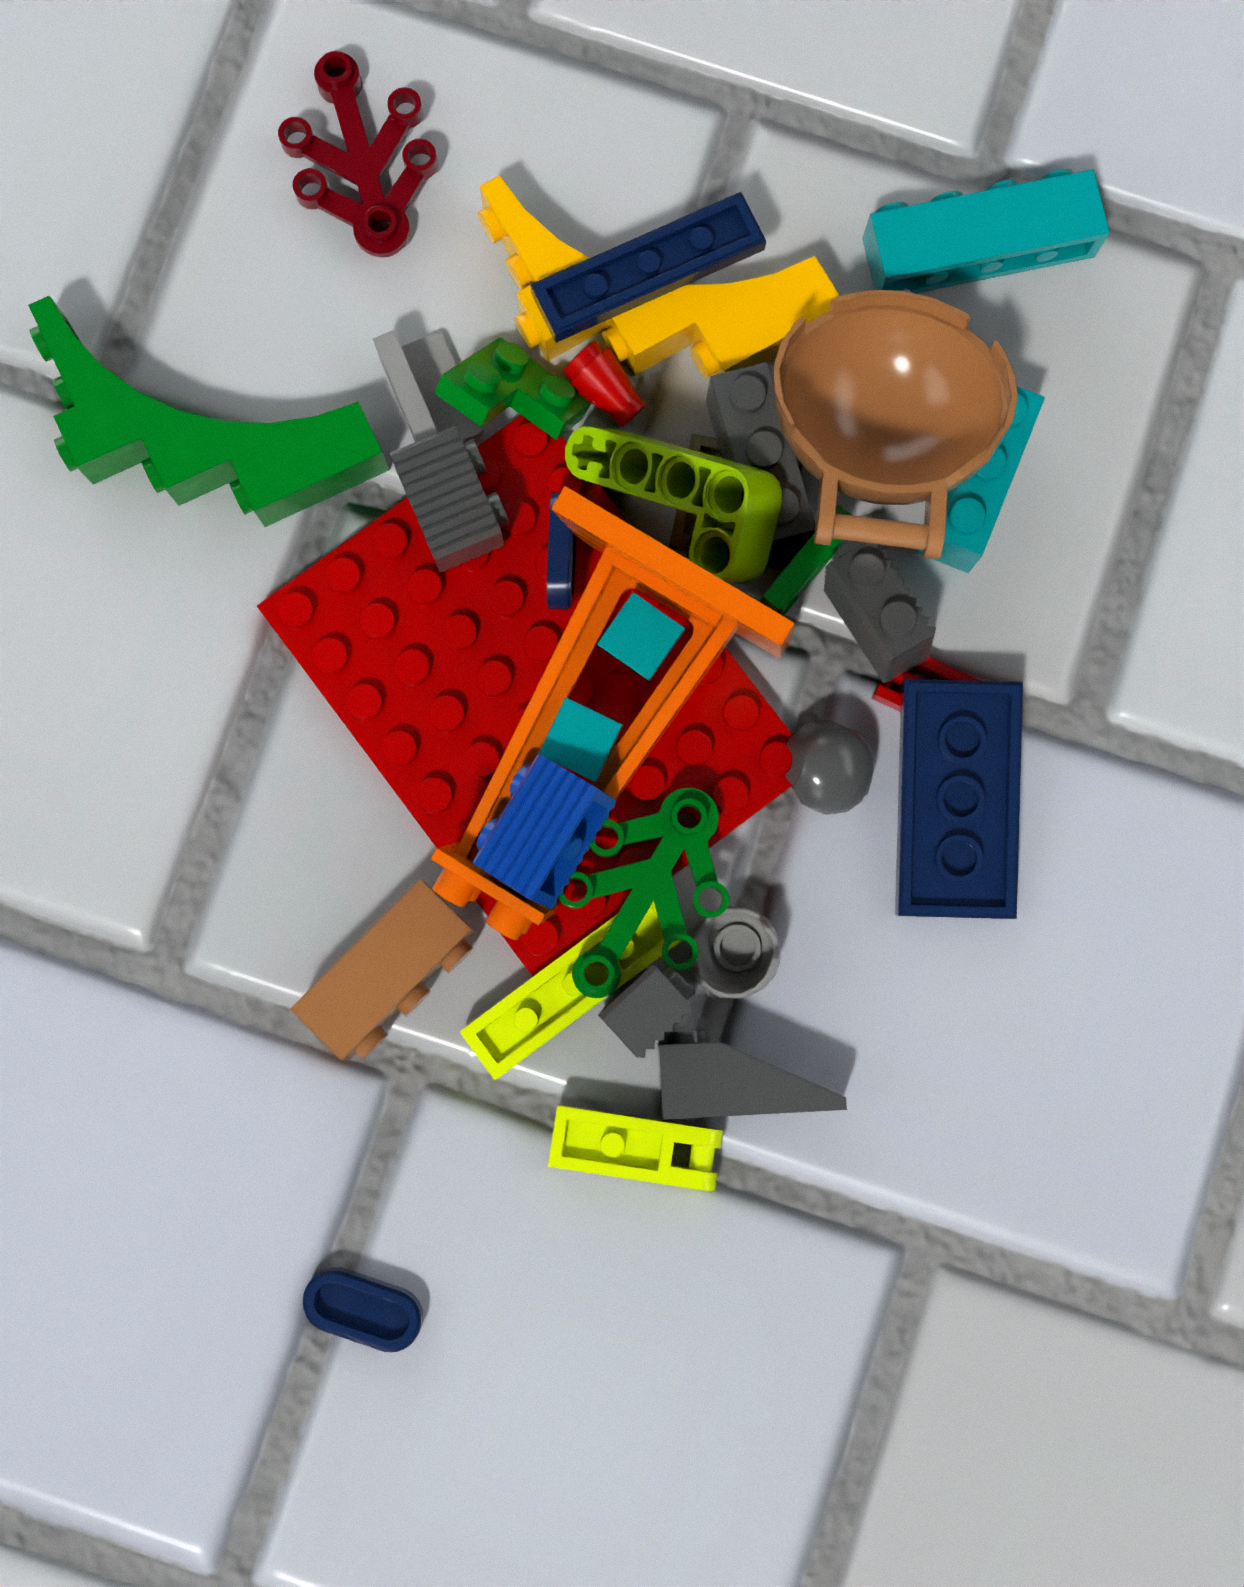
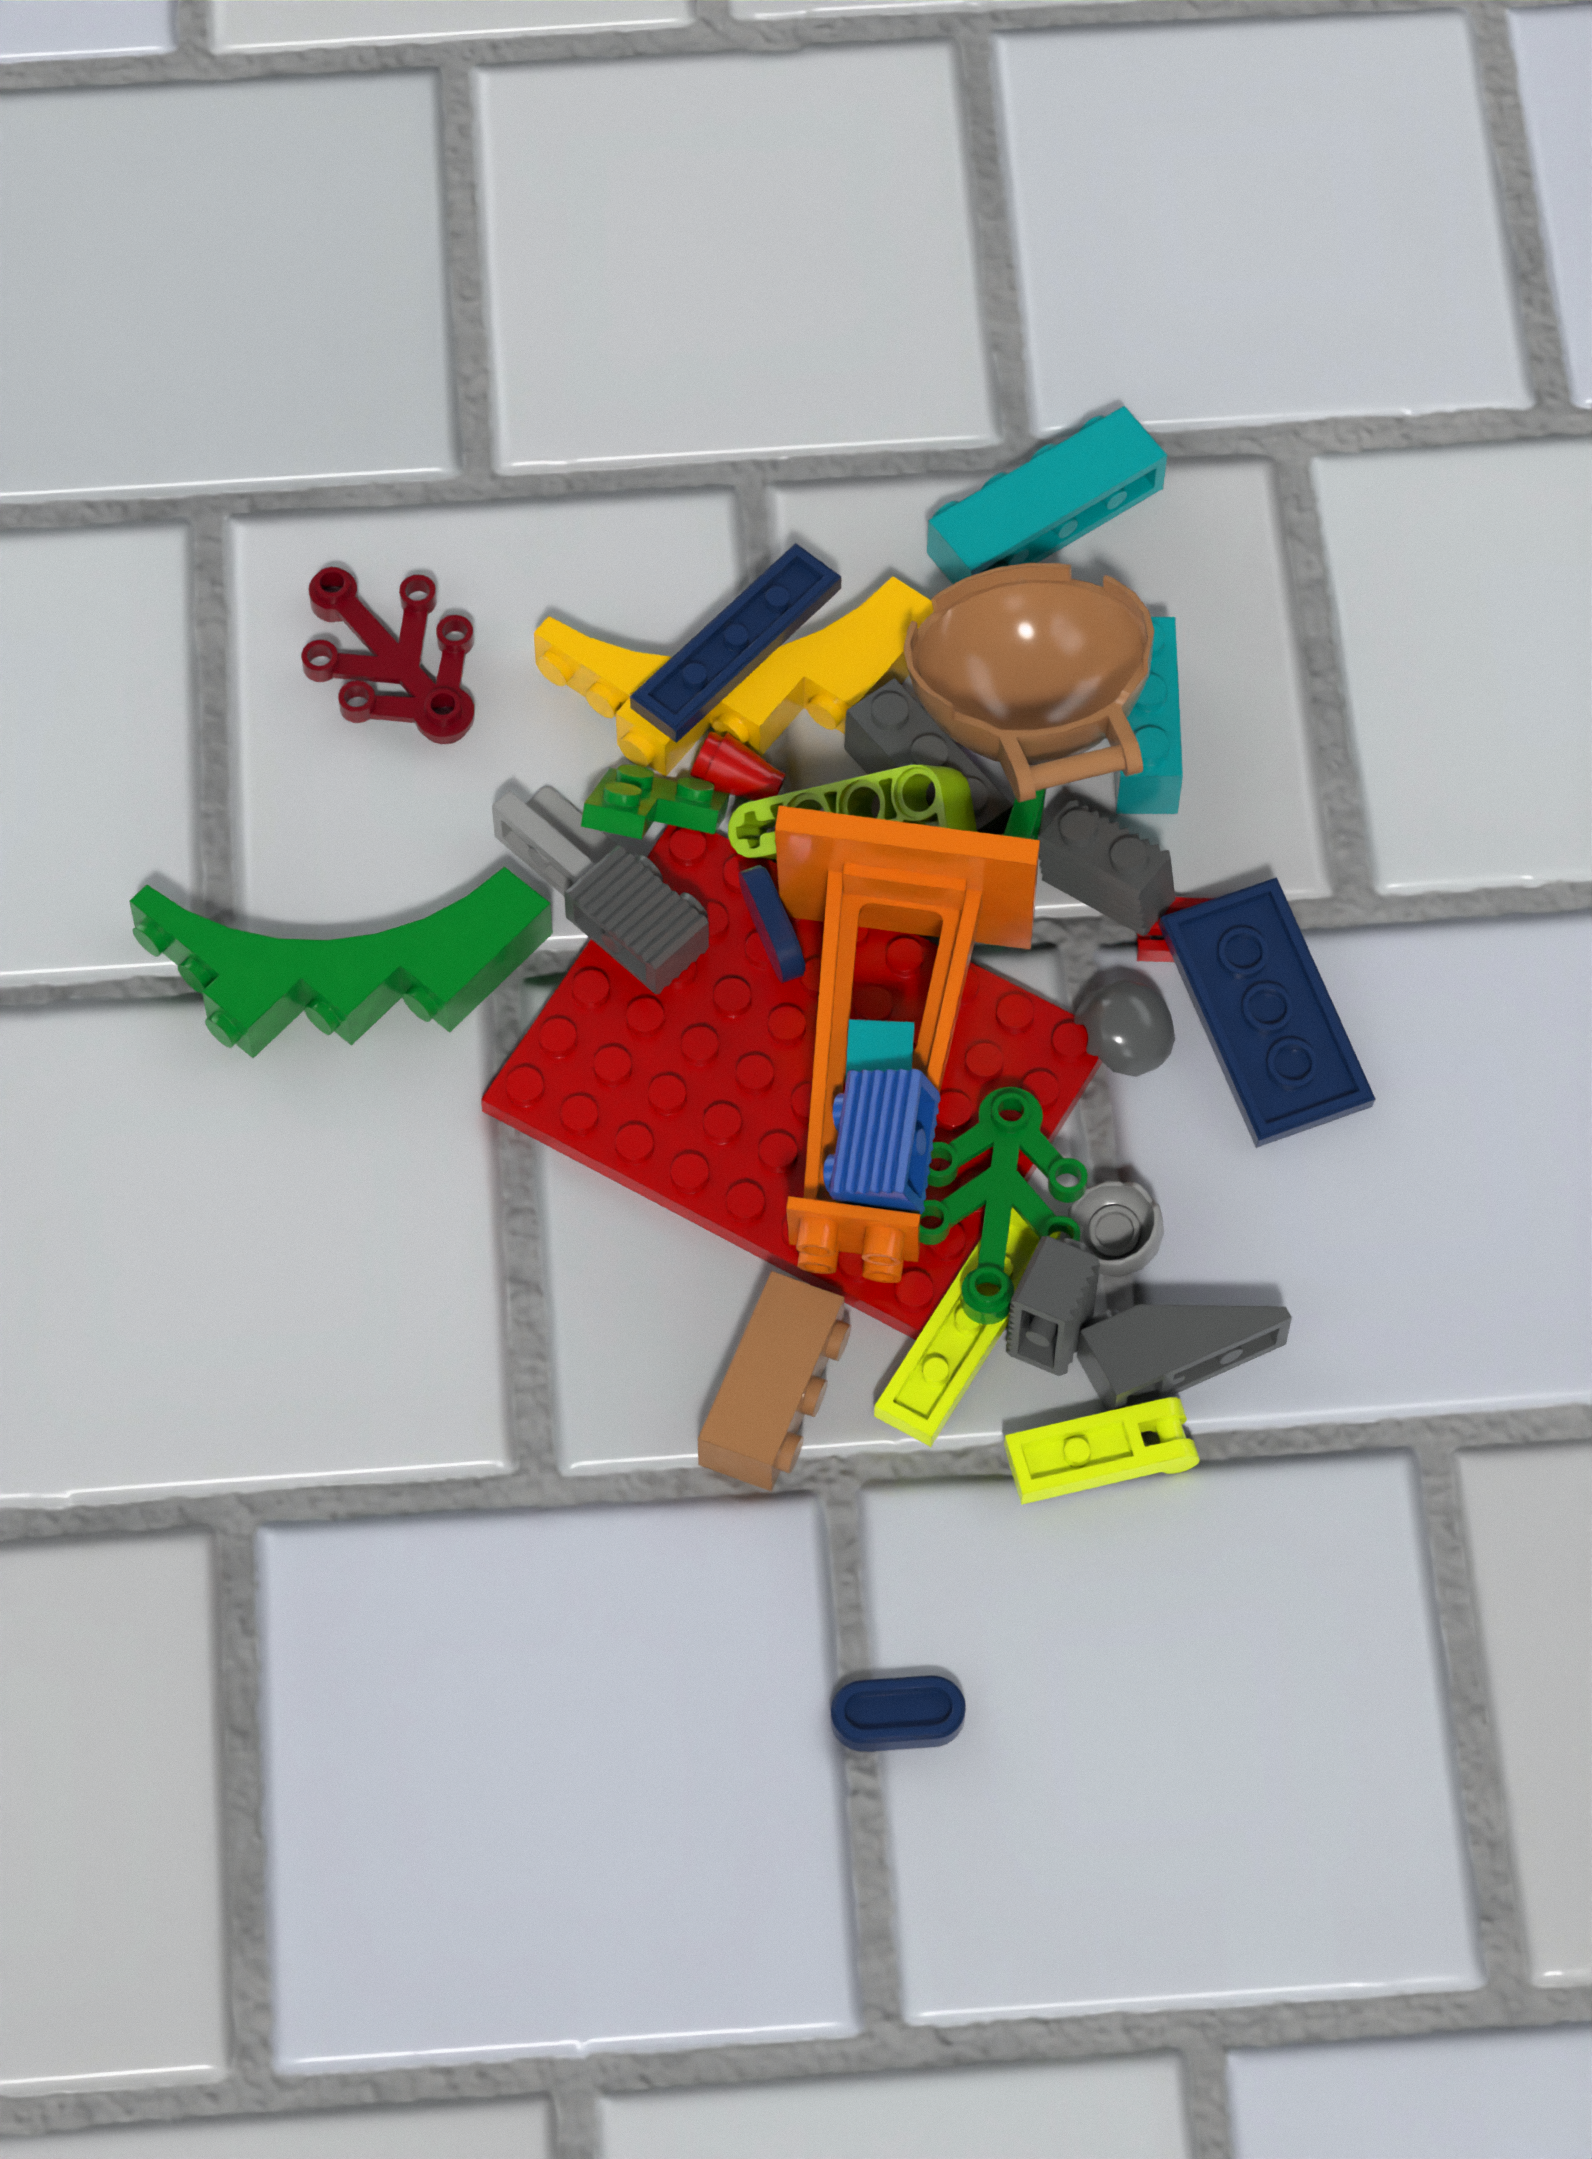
camera: 20 degrees left, 20 degrees down
(641, 636) = (896, 939): teal tile -> none

